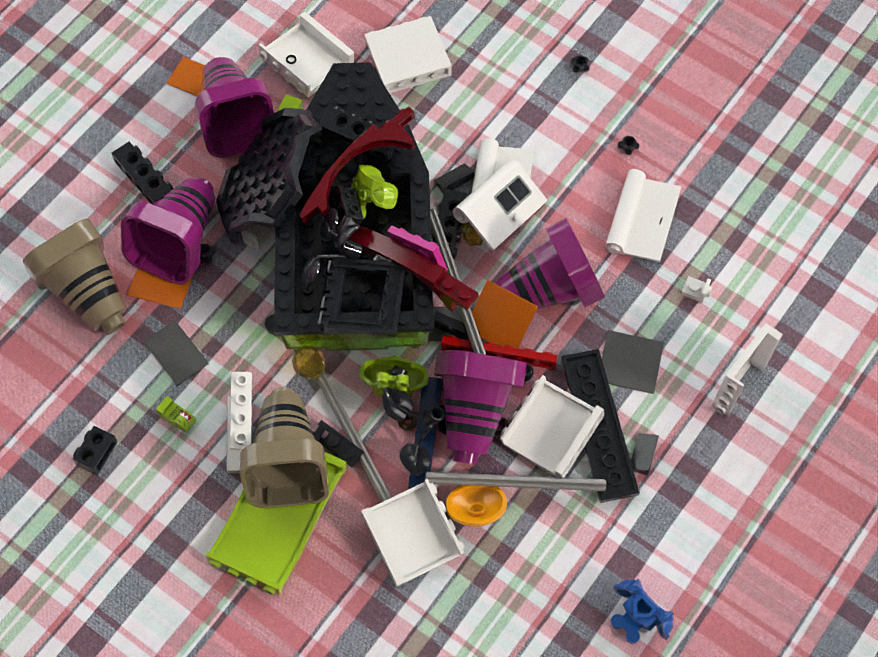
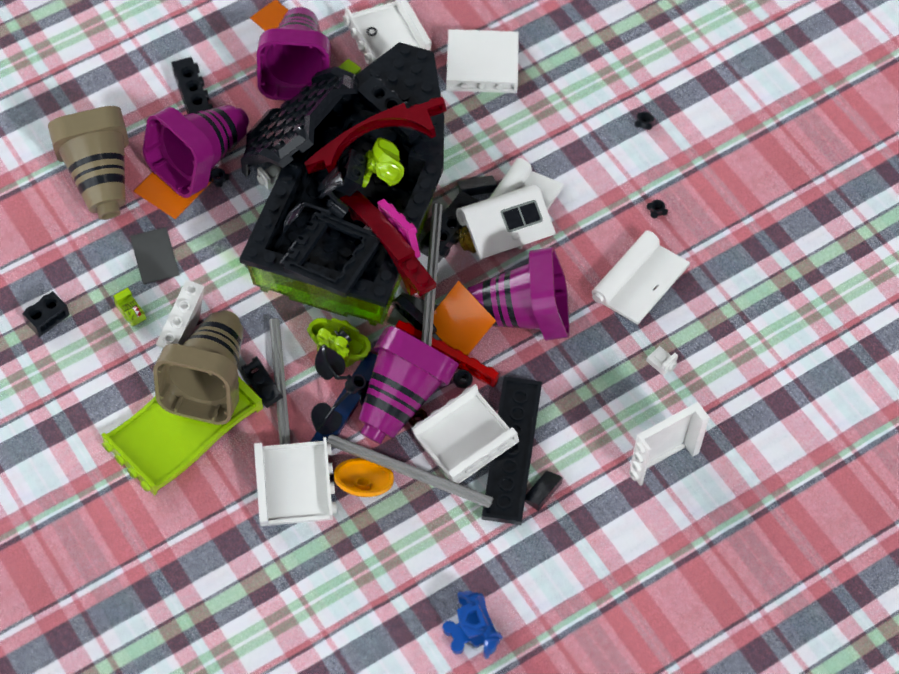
camera: 20 degrees right, 5 degrees down
(308, 362) = (267, 302): clear yellow hair -> none
(407, 427) = (335, 390): dark brown plate -> none
(632, 361) = (570, 405): dark grey piece -> none

